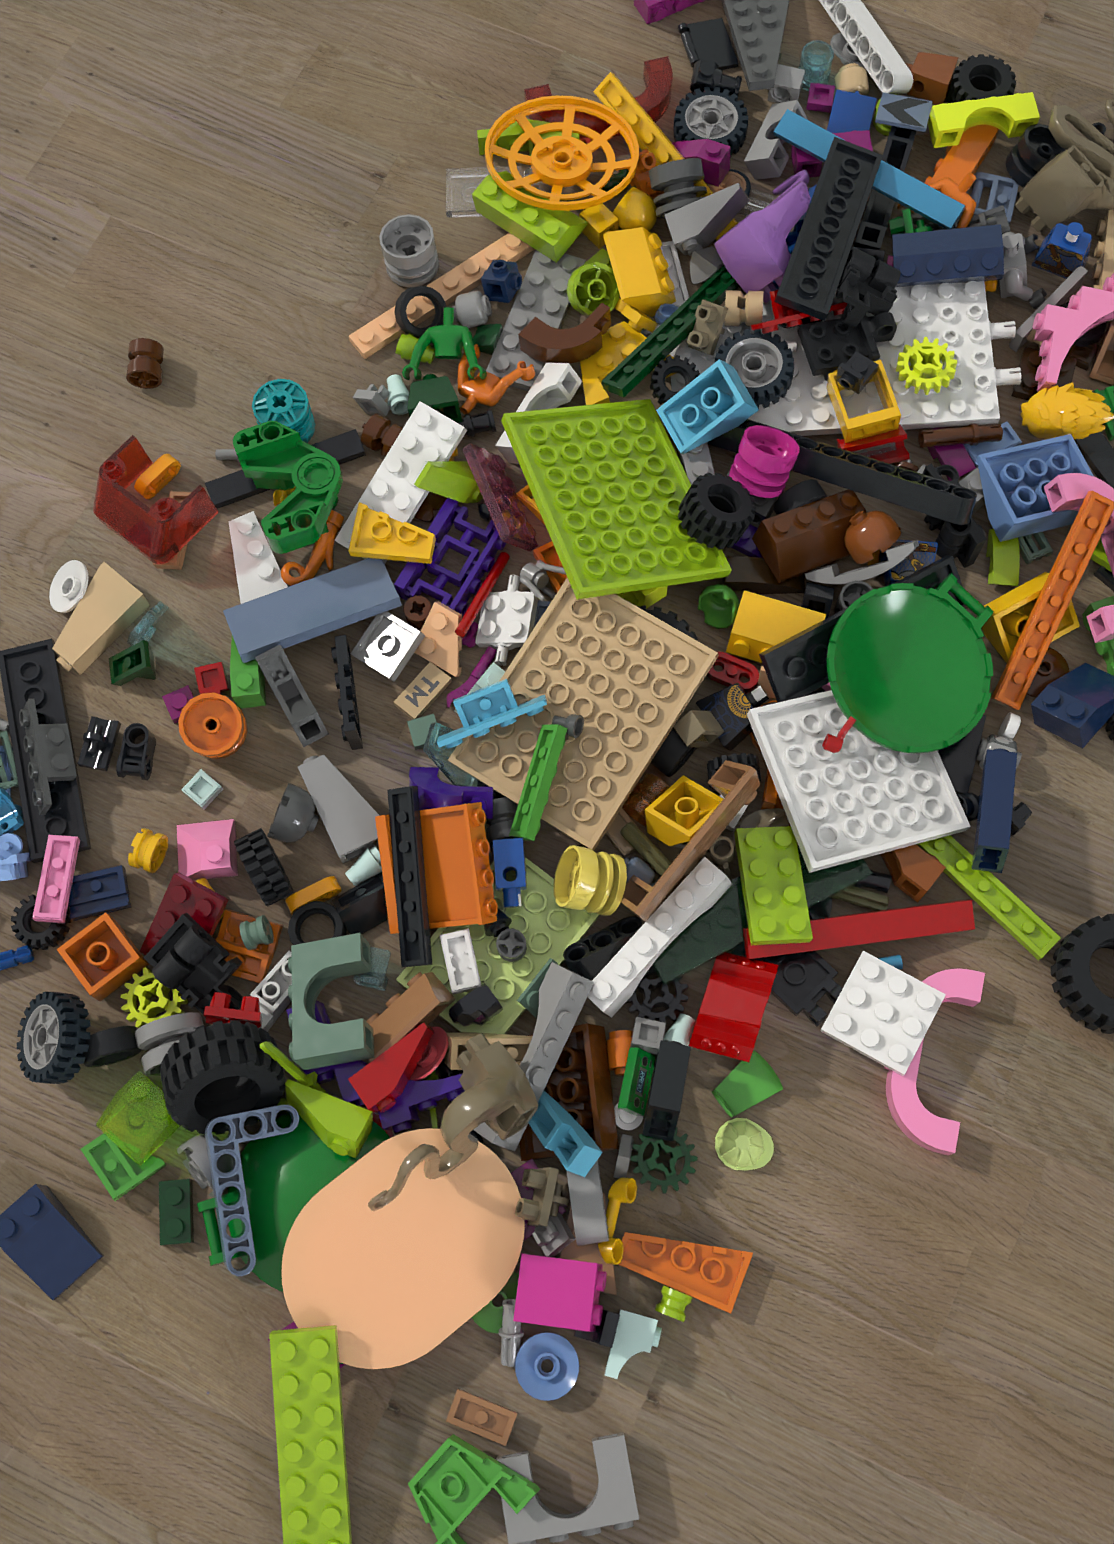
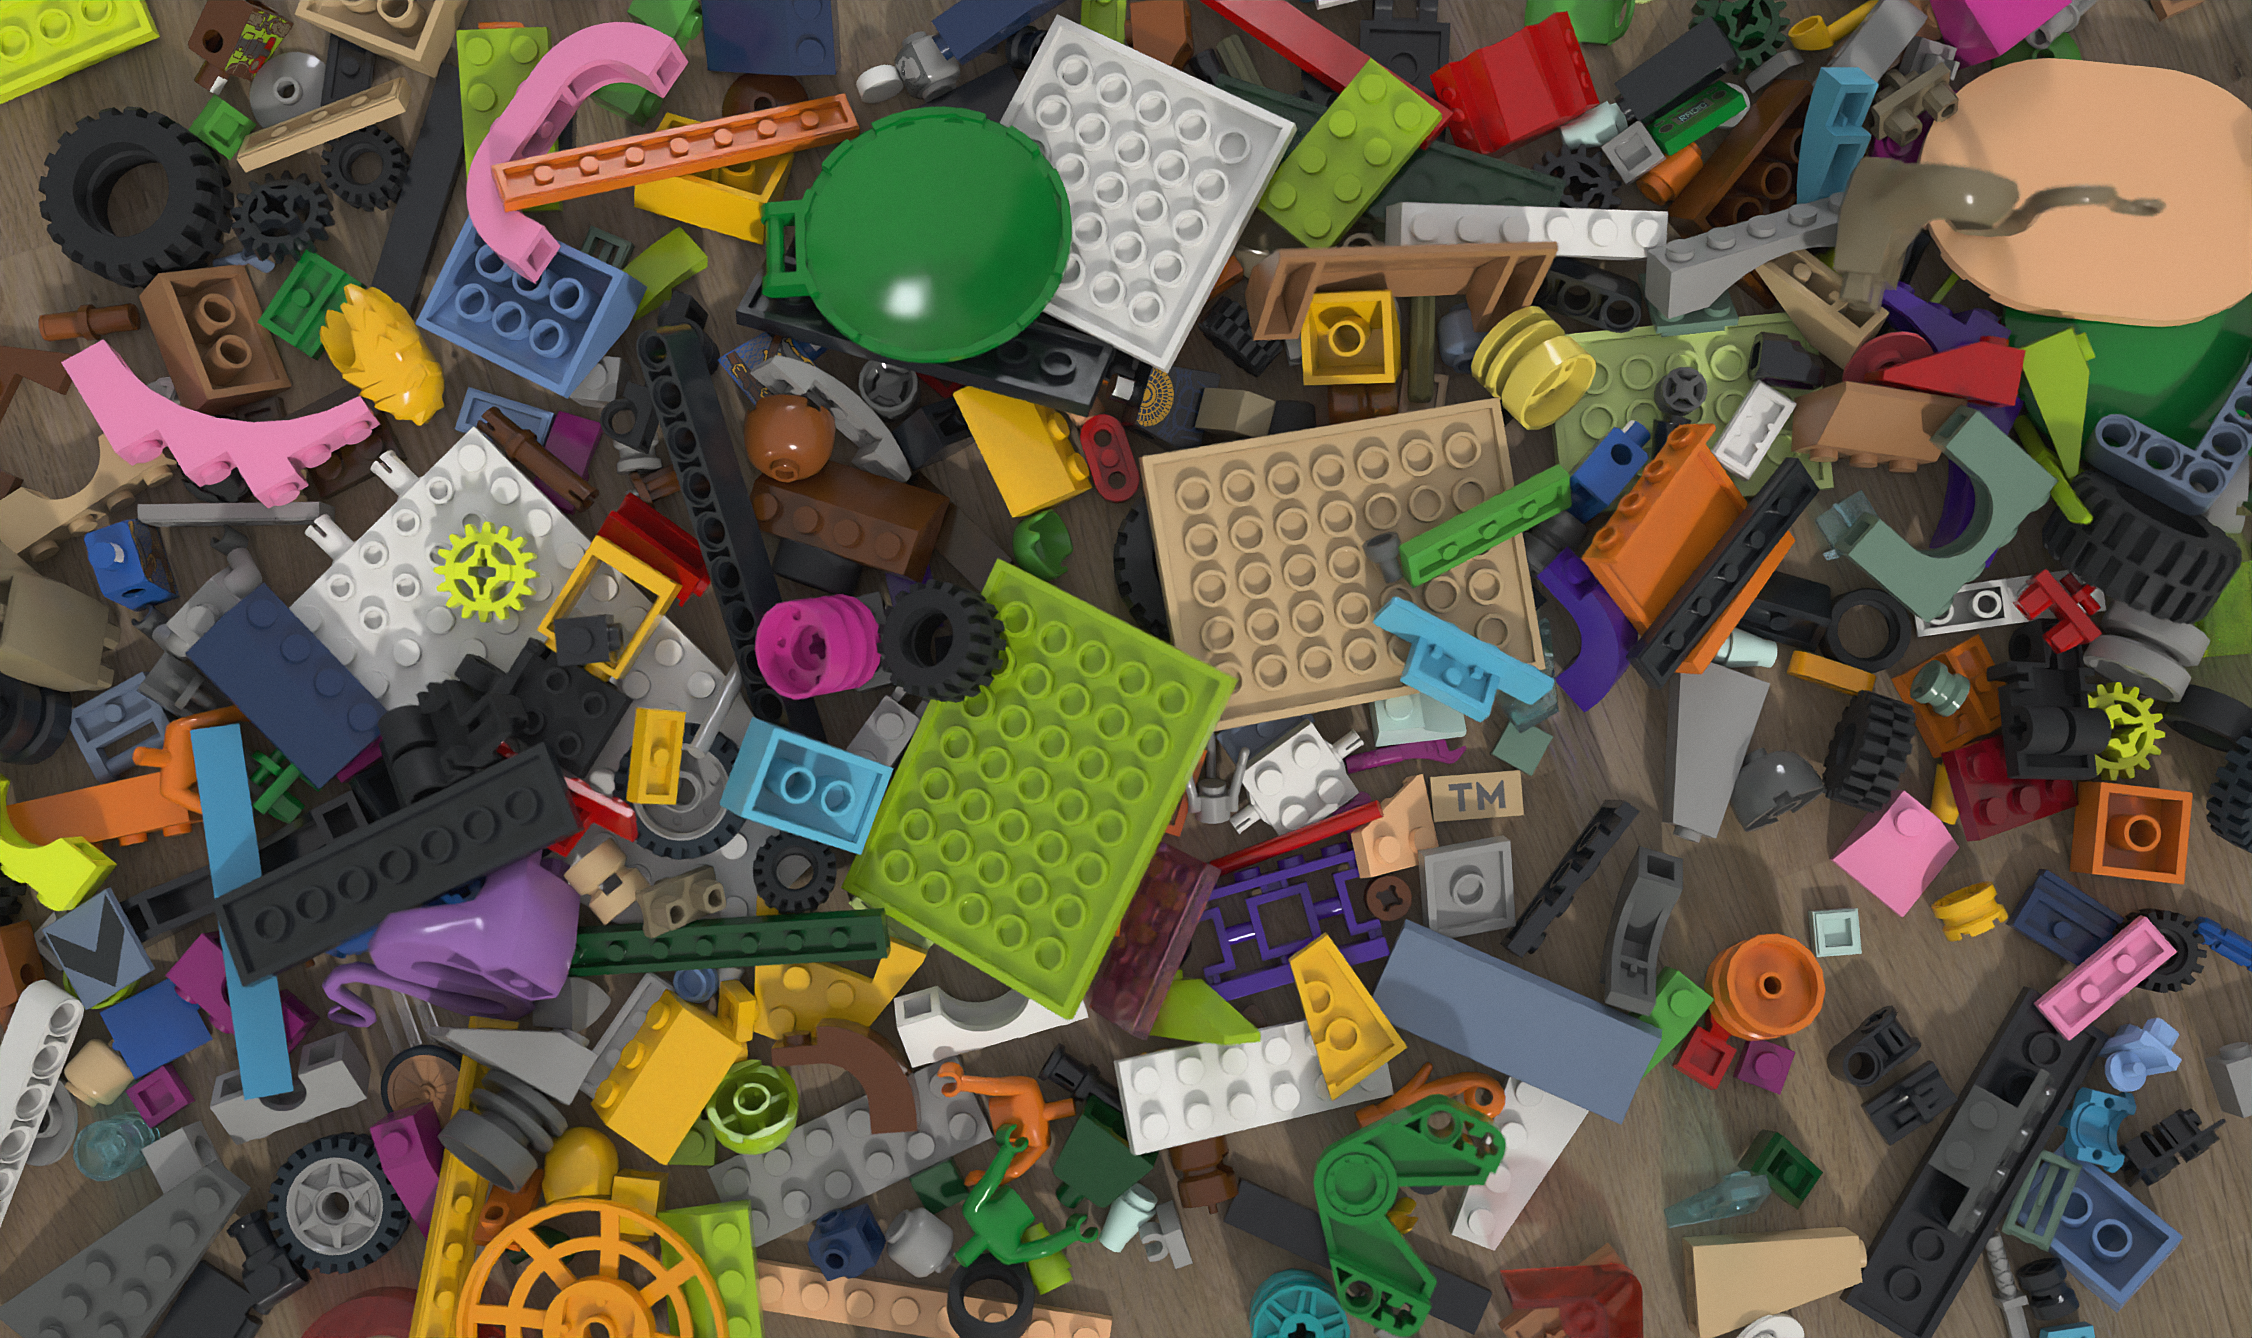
camera: 135 degrees left, 15 degrees up
(776, 409) = (717, 713): none -> light grey bar
(778, 359) = (656, 756): none -> yellow plate
(834, 743) = (1113, 234): red hand -> none

